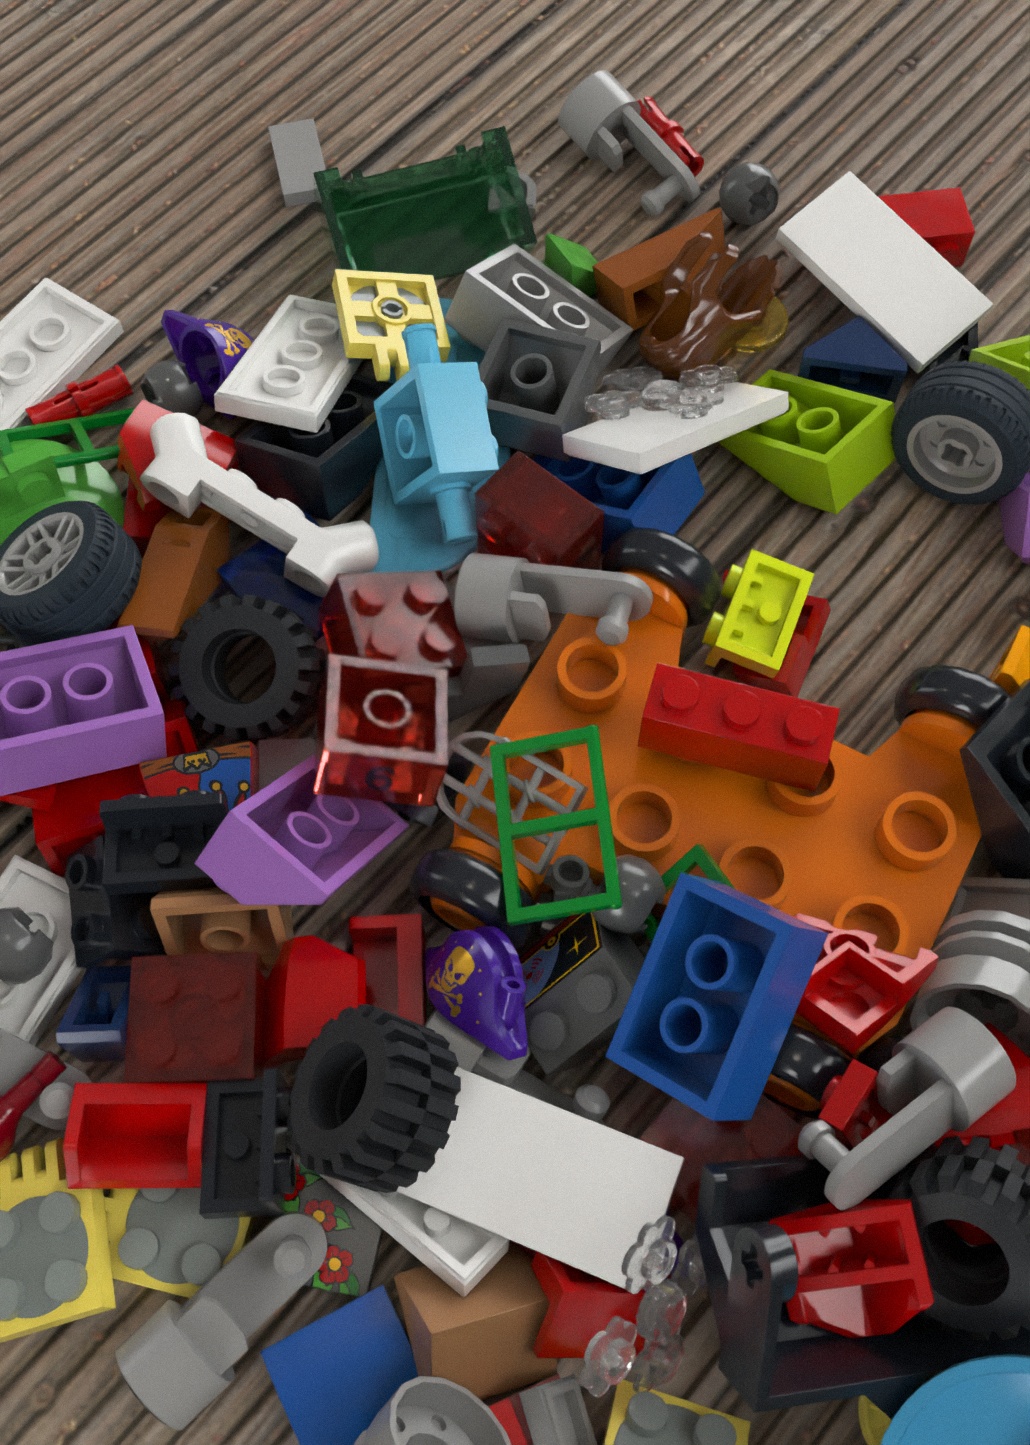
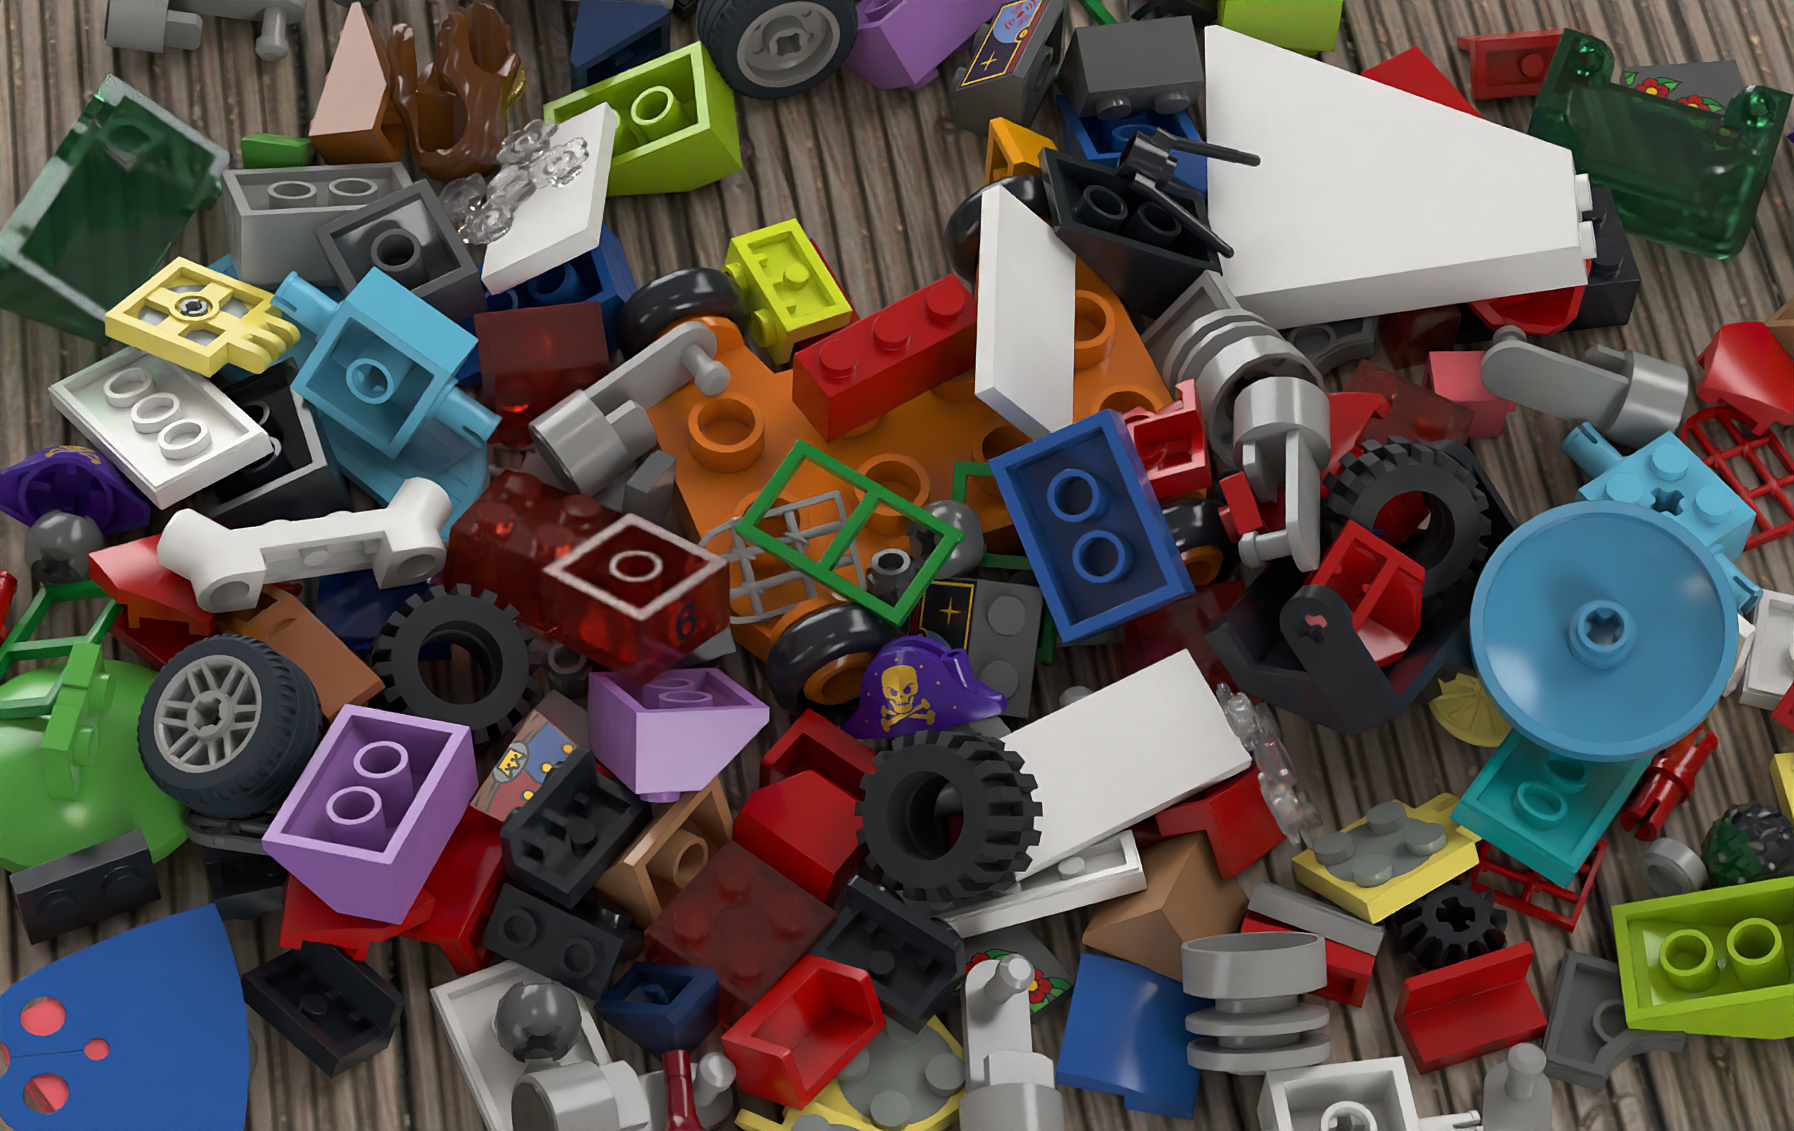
camera: 55 degrees left, 10 degrees down
(856, 793) = (1024, 317): none -> white tile

